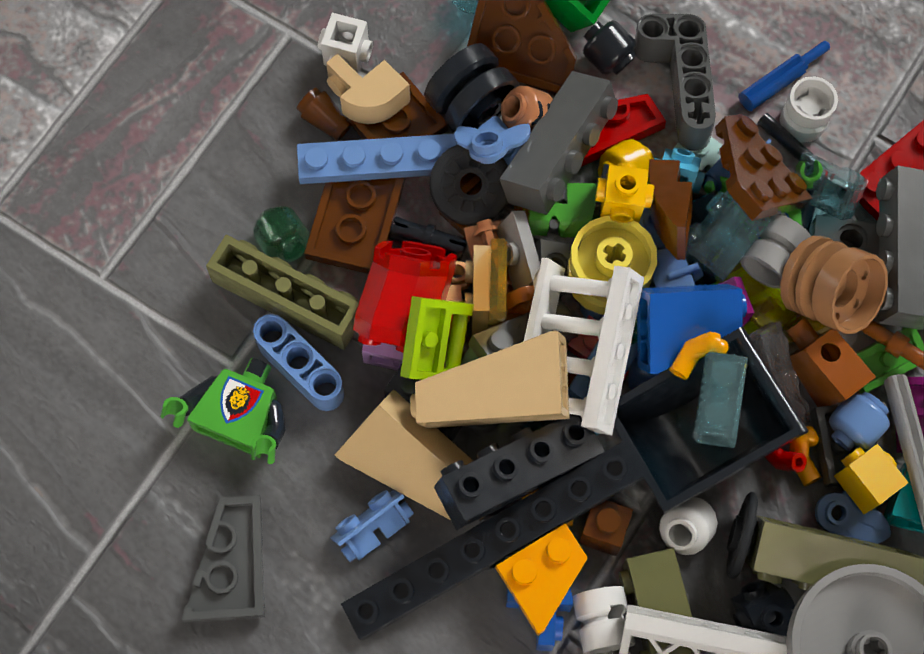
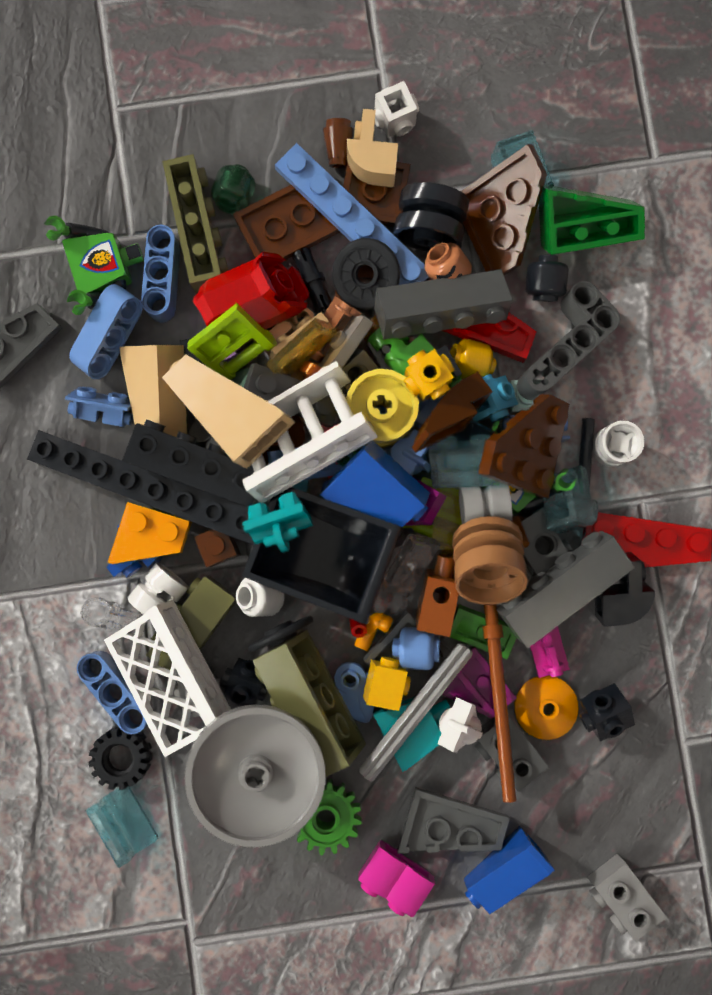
camera: 50 degrees right, 15 degrees up
(309, 454) = (105, 331): none -> medium blue beam
(491, 139) = (402, 260): medium blue plate -> none
(652, 428) = (278, 525): none -> teal hips
(696, 349) = (358, 510): light orange arm -> none
(720, 399) = (331, 554): clear light blue brick -> none
(780, 77) = (629, 407): blue axle -> none

